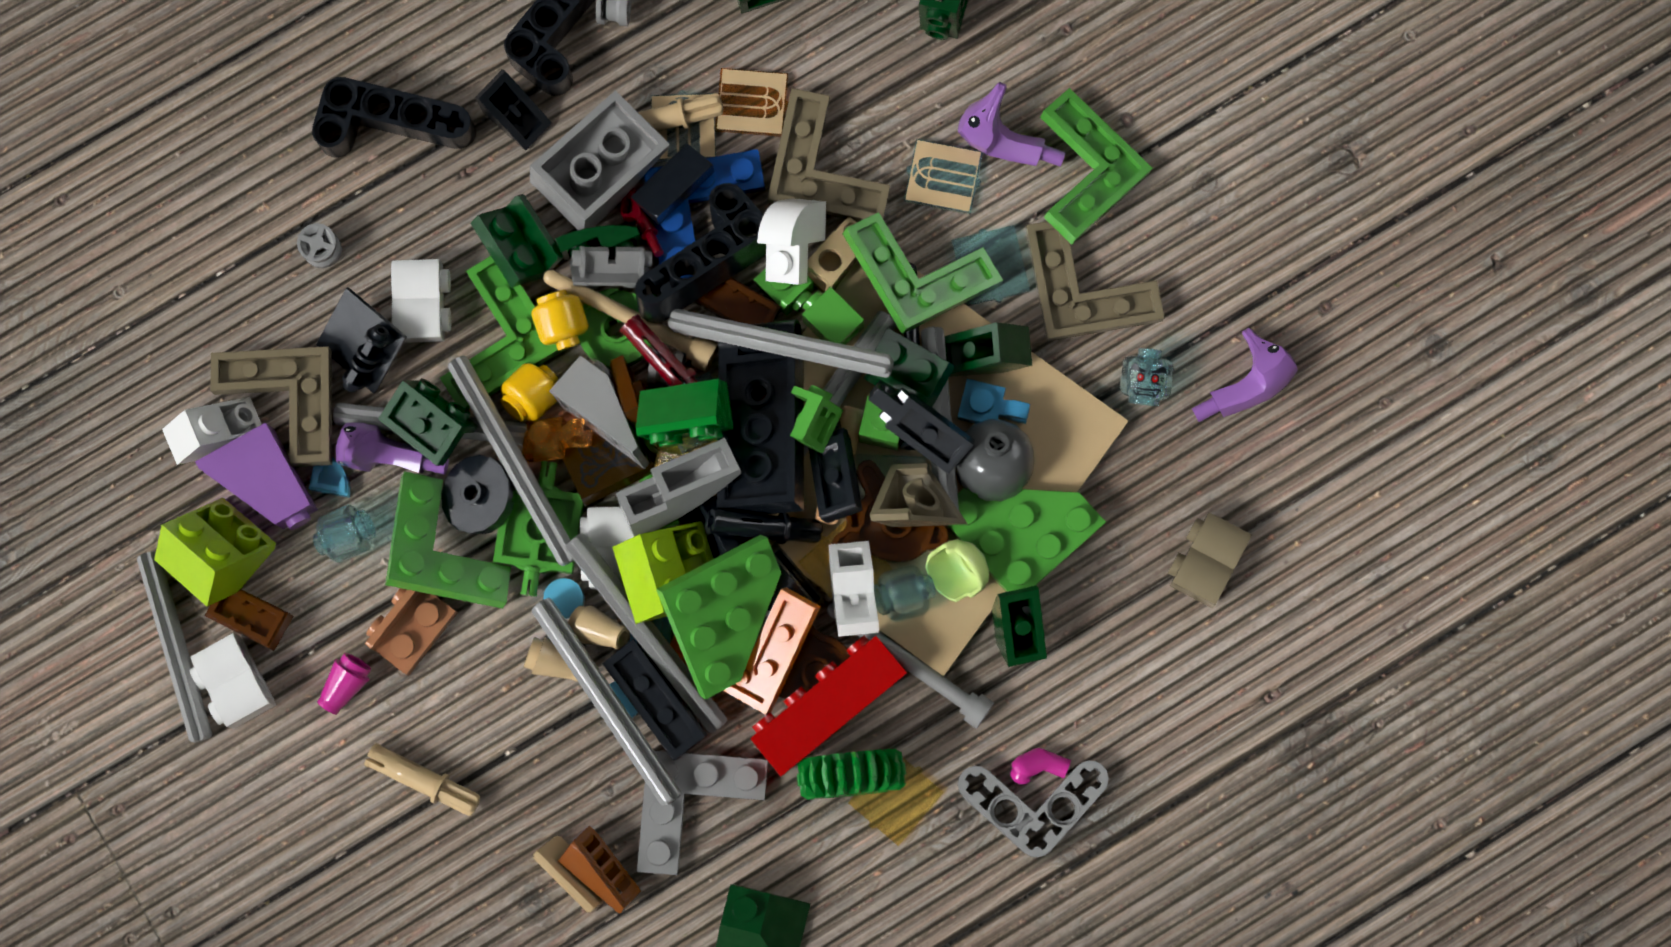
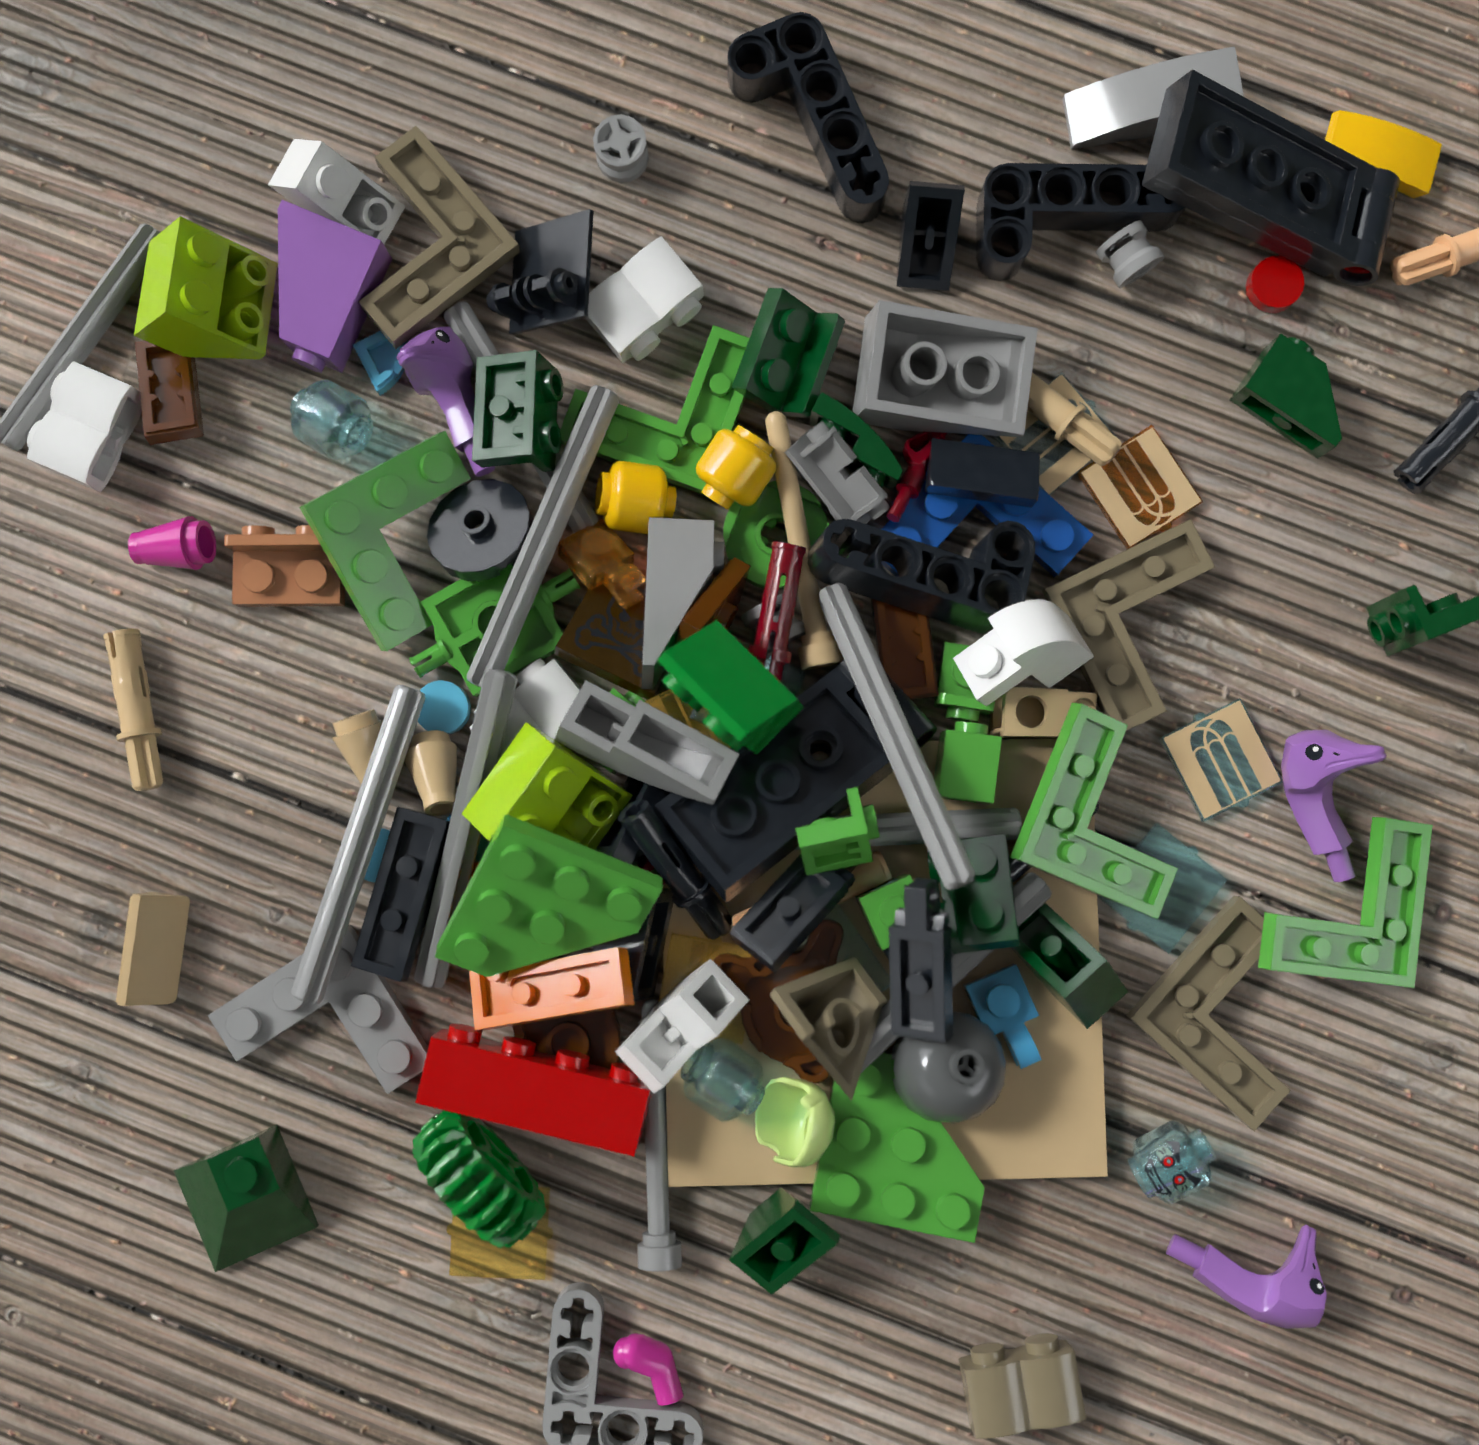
camera: 50 degrees right, 5 degrees up
(599, 870) = (162, 961): dark orange slope -> none

